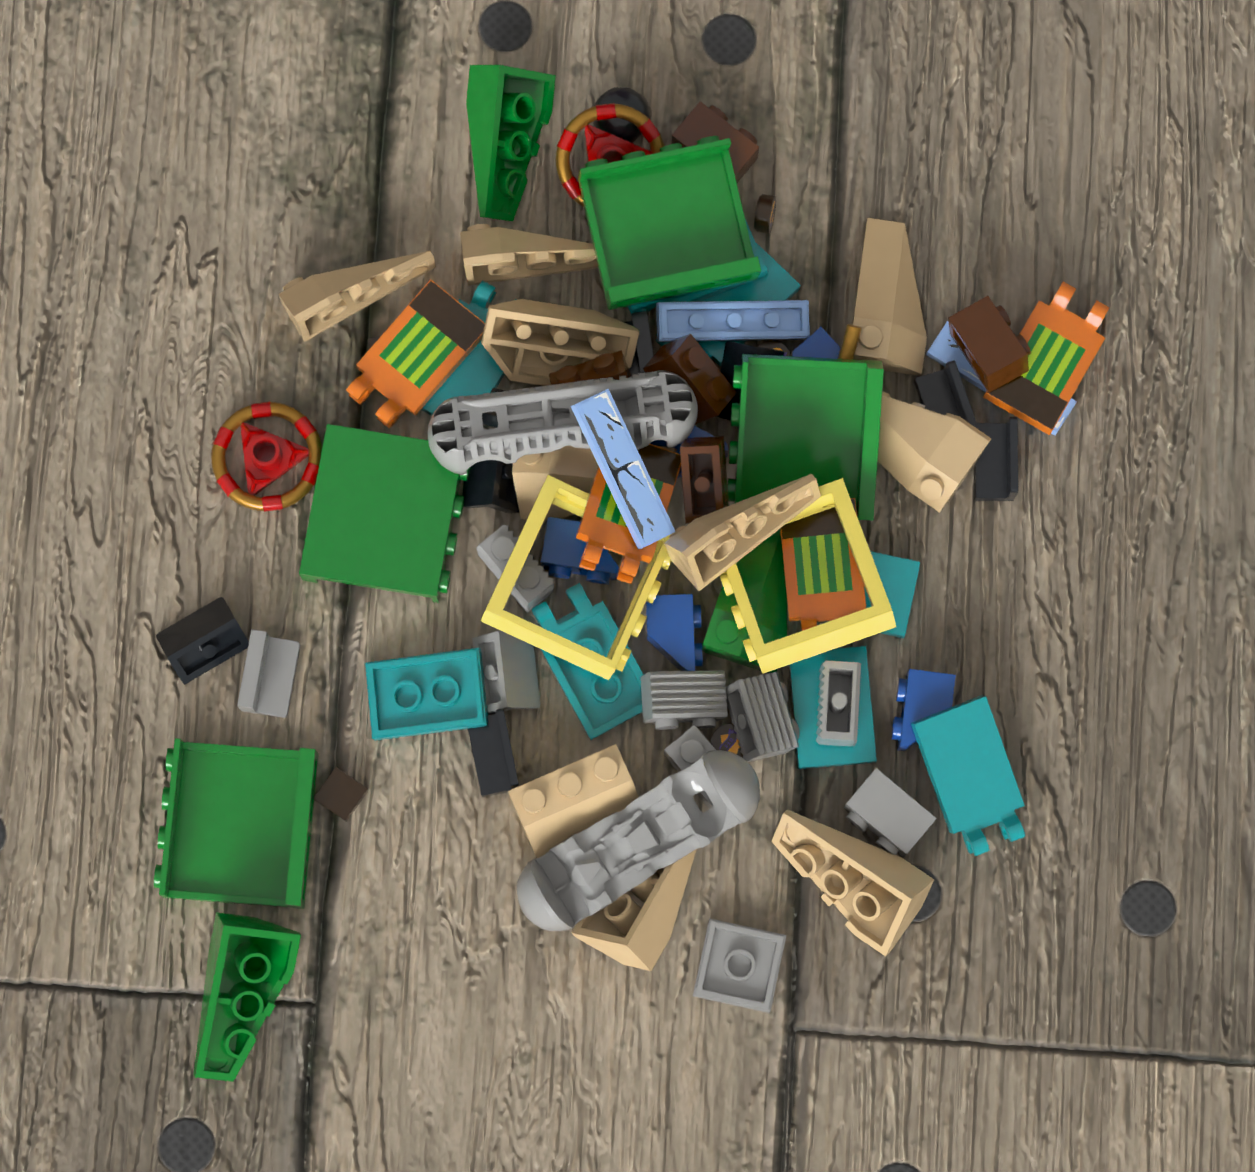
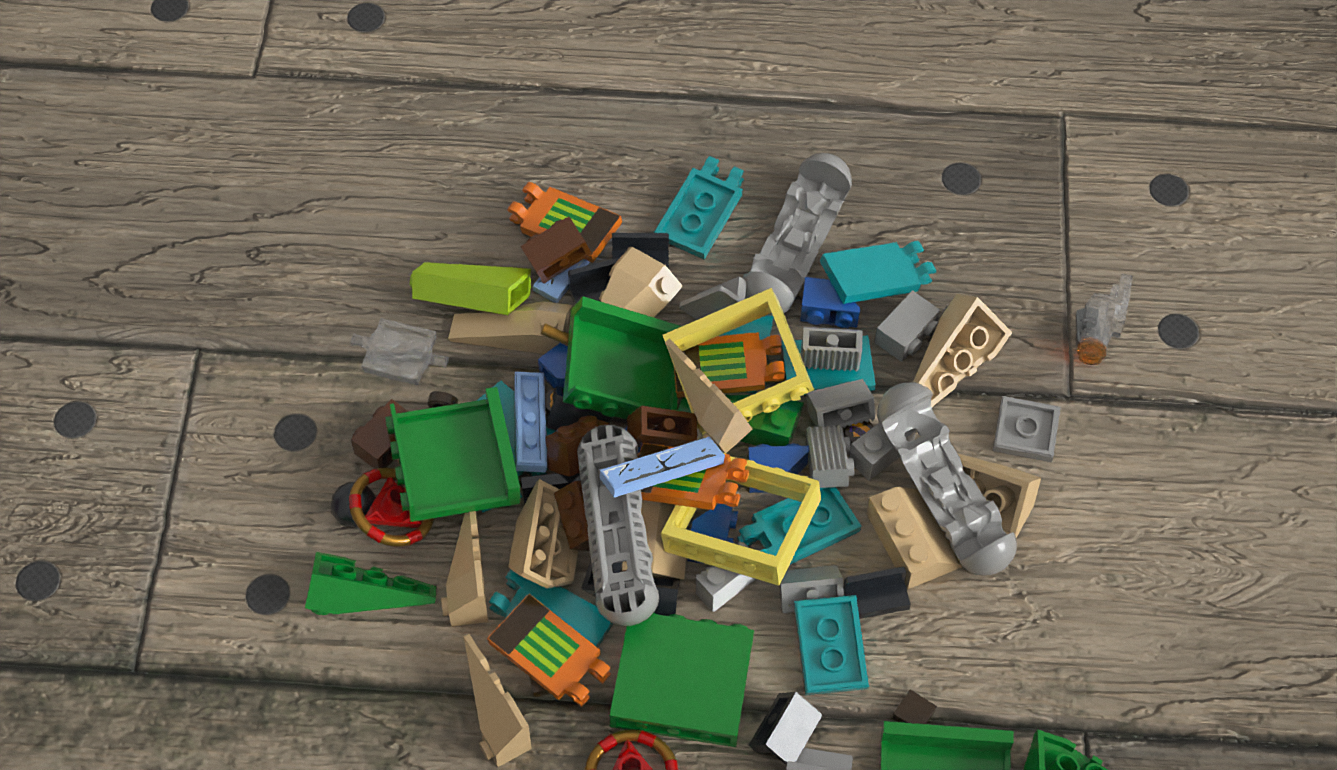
camera: 90 degrees left, 20 degrees down
(317, 636) = (786, 727): none -> panel
(842, 156) = (399, 351): none -> clear plate
(906, 1075) = (1101, 320): none -> clear plate
(919, 558) = (715, 298): none -> light grey panel
(934, 242) = (472, 286): none -> lime slope
(1037, 673) = (800, 228): none -> light grey piece
(1079, 542) = (701, 208): none -> teal tile

